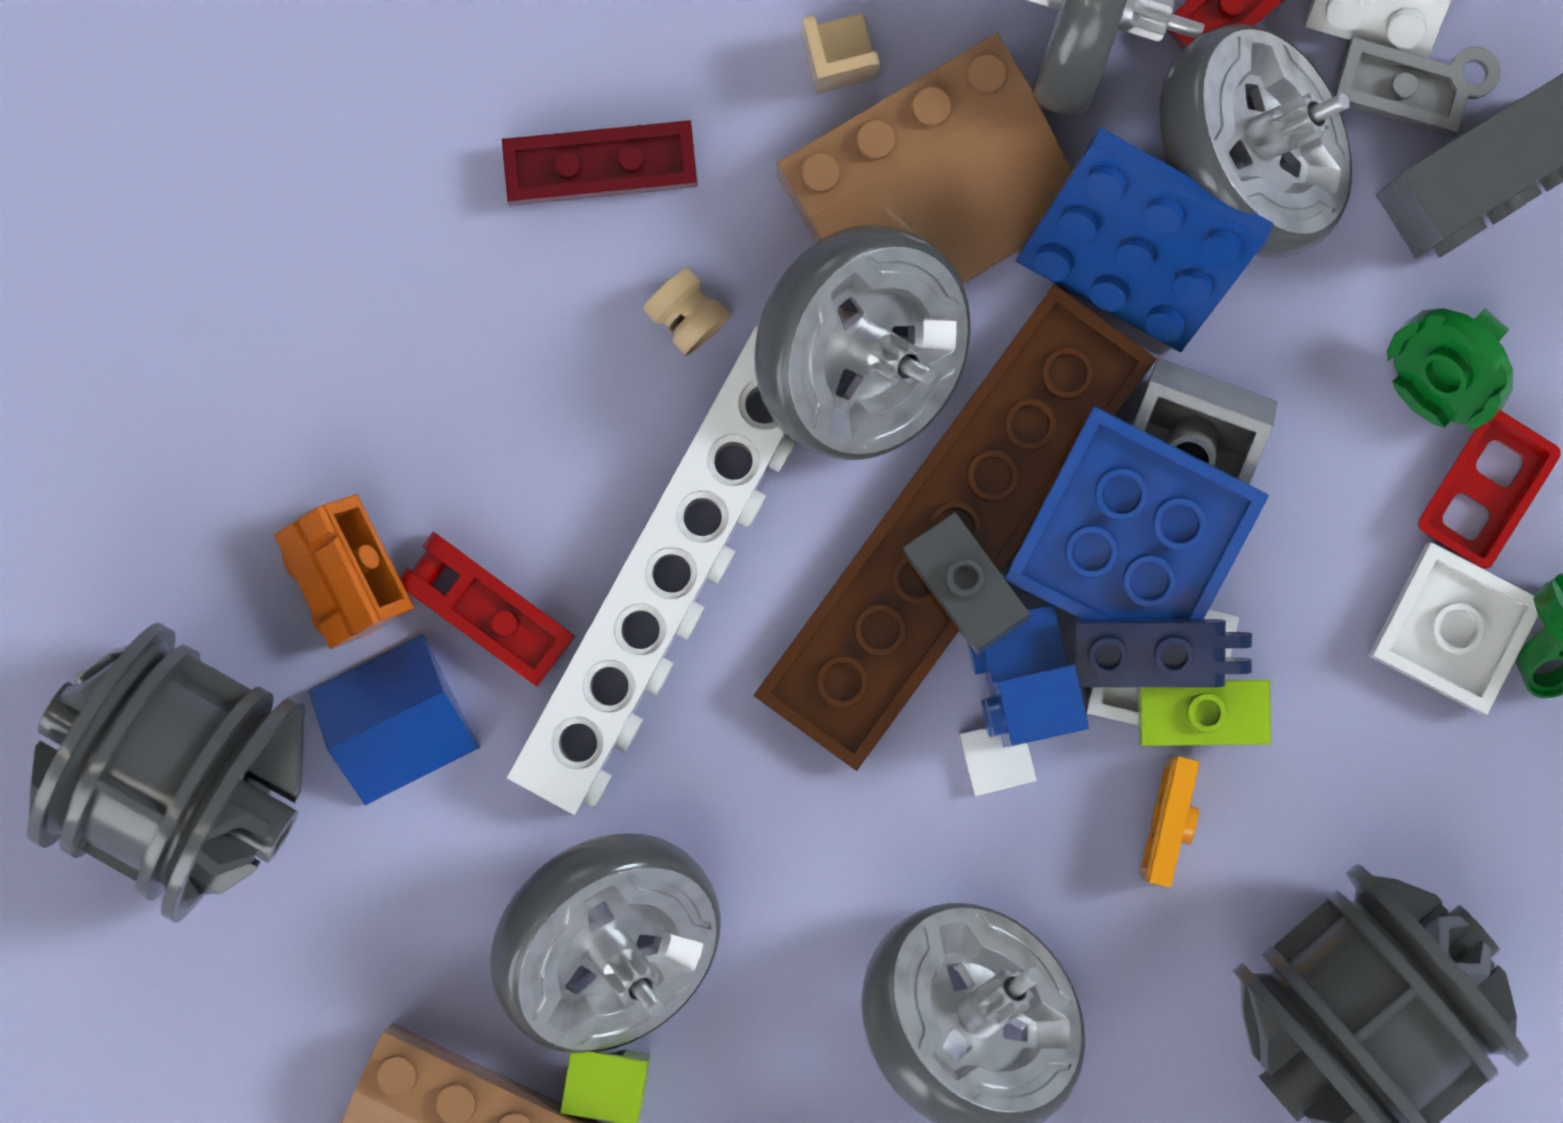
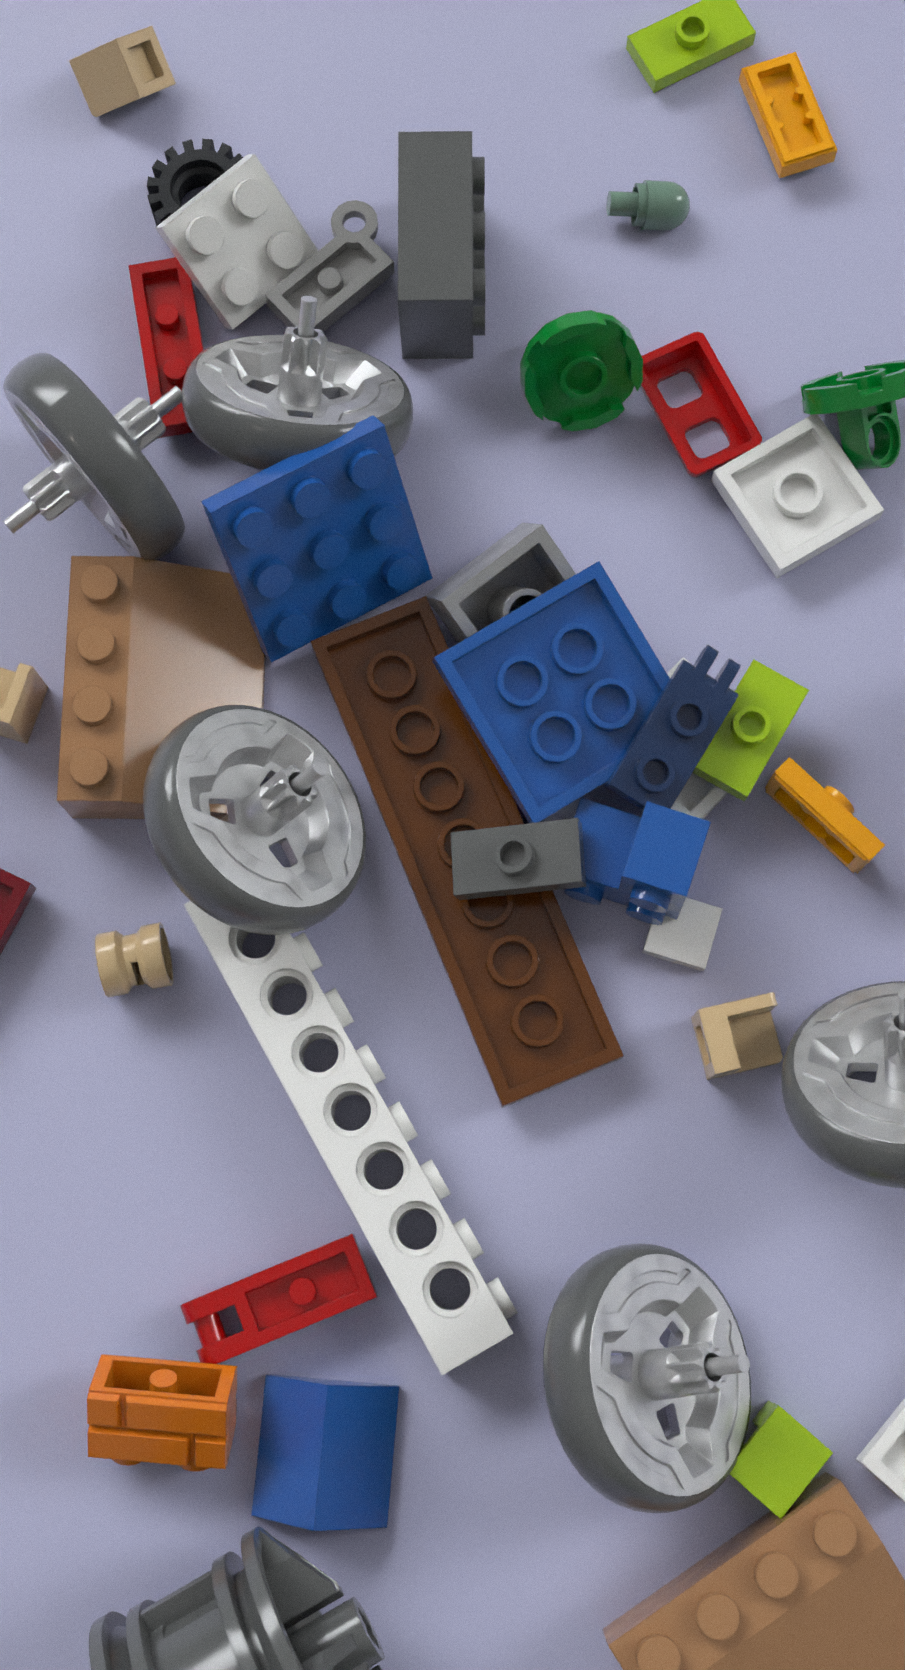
camera: 55 degrees left, 10 degrees down
(932, 858) = (737, 1036): none -> tan panel

